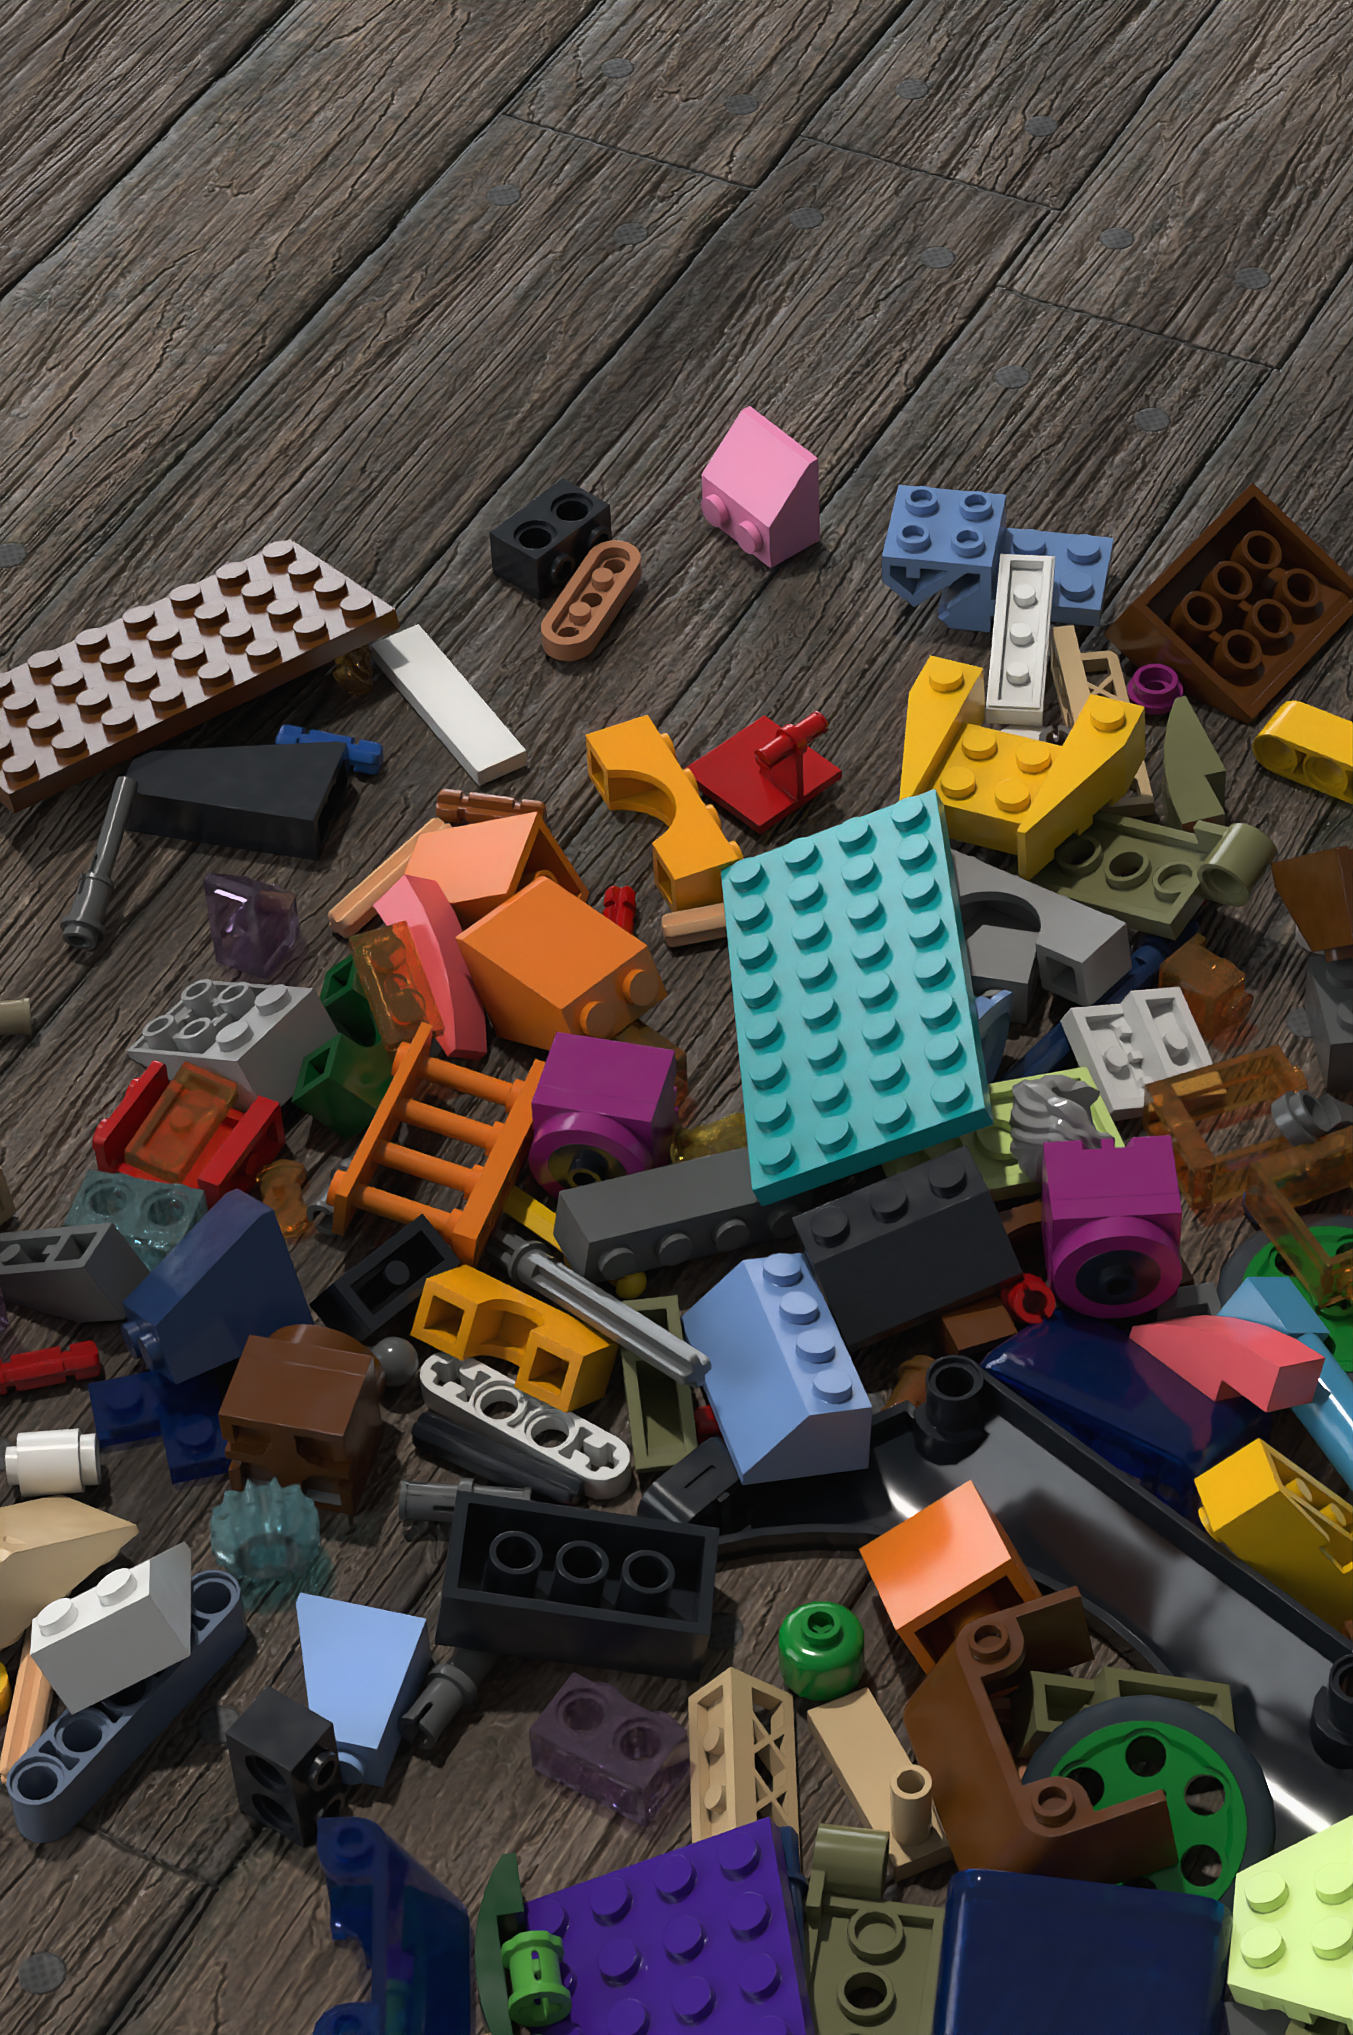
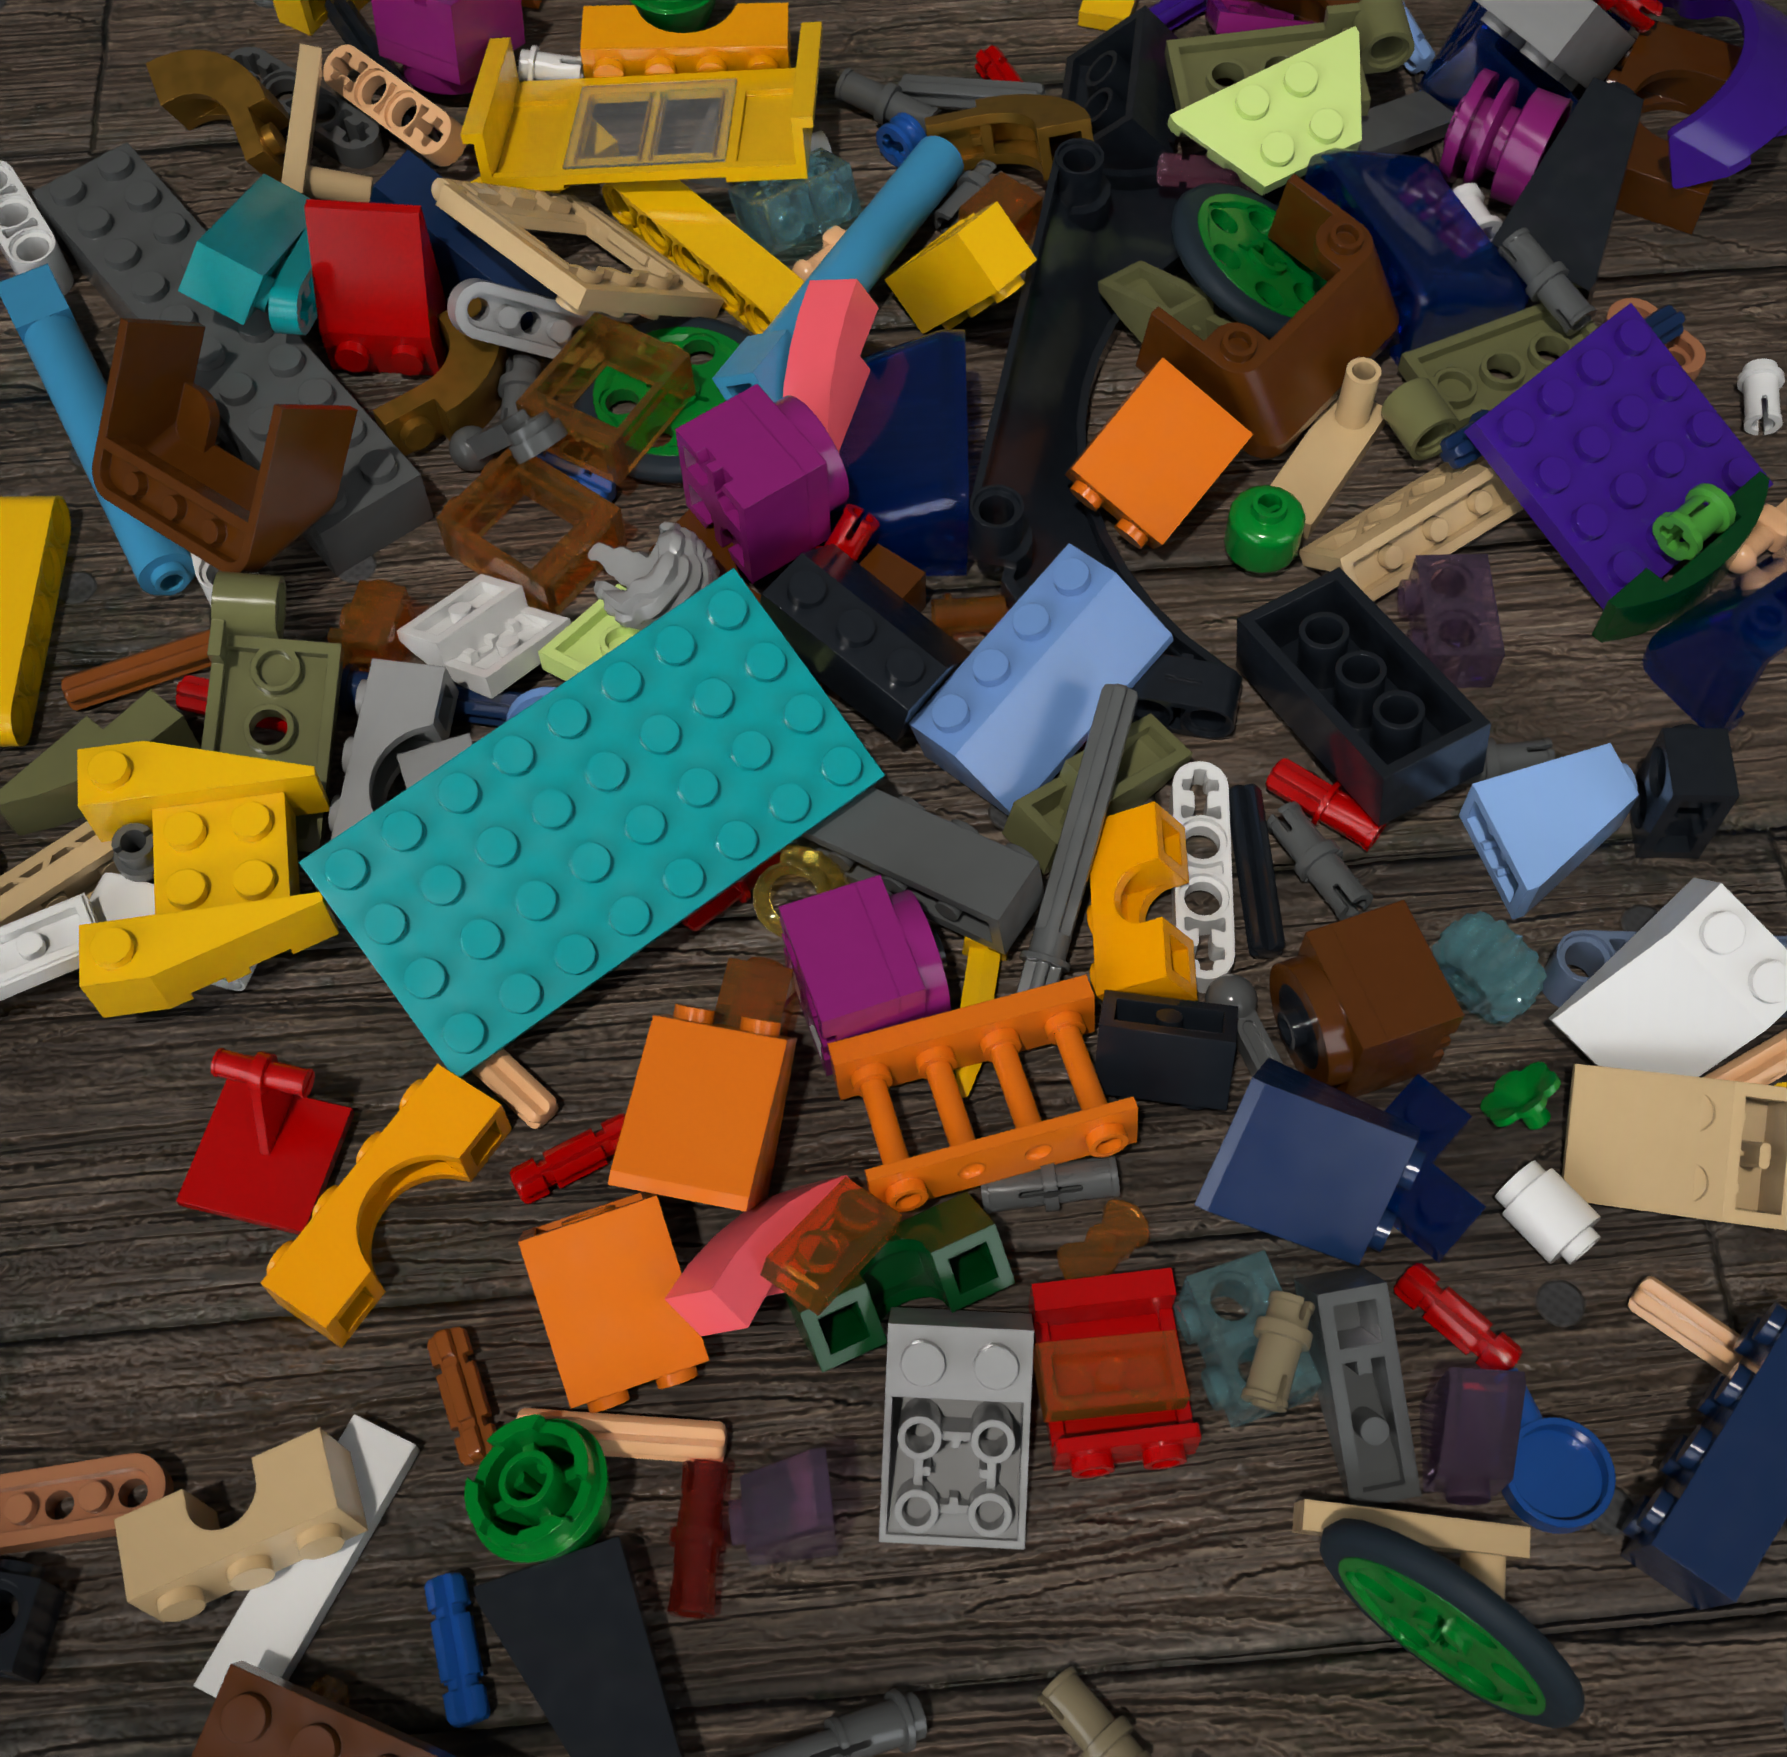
camera: 125 degrees left, 15 degrees up
(104, 1195) = (1278, 1350): none -> dark tan pin
(153, 1506) = (1522, 1097): none -> green plant
(311, 896) = (698, 1539): none -> clear red pin
(376, 799) = (539, 1490): none -> green cone
(485, 659) = (300, 1510): none -> tan arch
(1282, 830) = (137, 671): none -> dark orange axle

